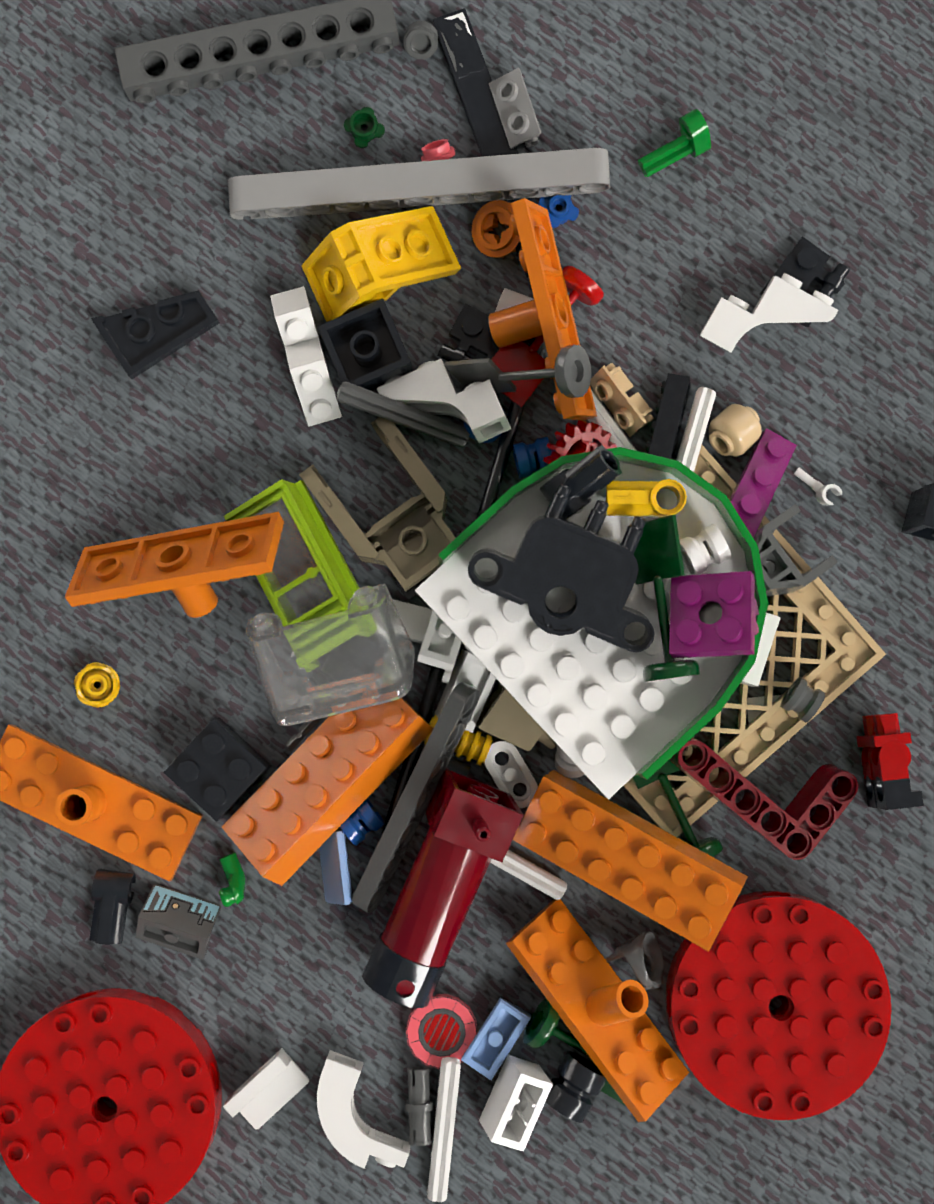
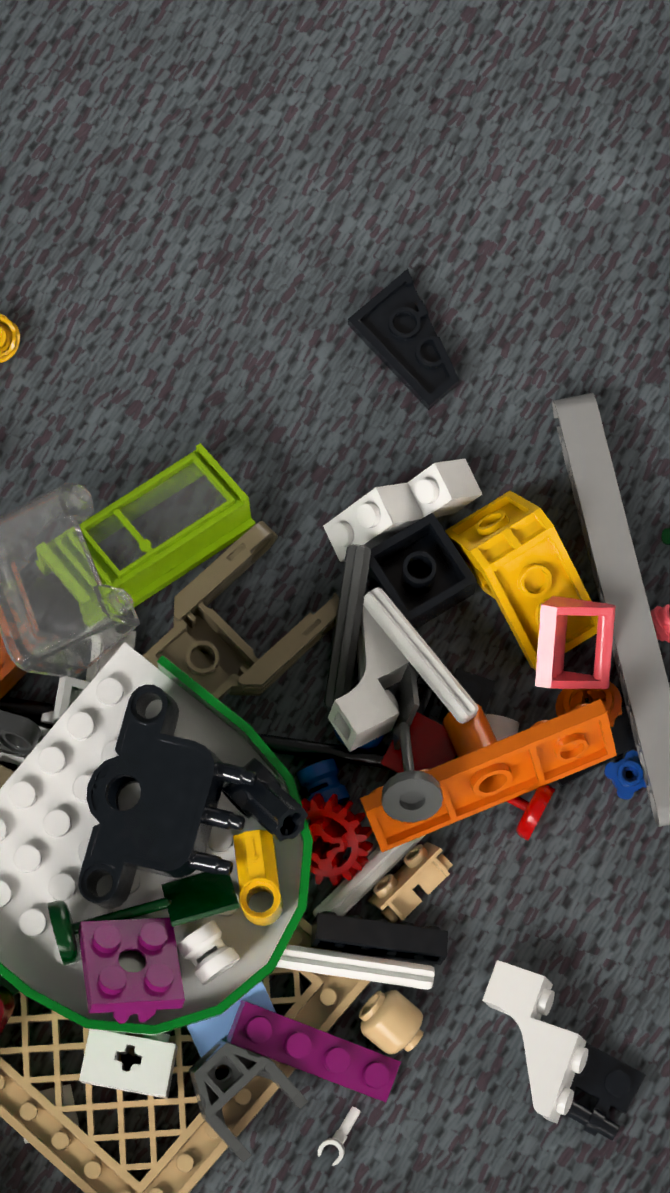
camera: 85 degrees right, 10 degrees down
(178, 562) = (141, 400): orange plate -> none
(418, 227) = (553, 640): none -> coral tile
(442, 354) = (420, 655): none -> white axle
(803, 700) = (71, 1143): dark grey wheel -> none

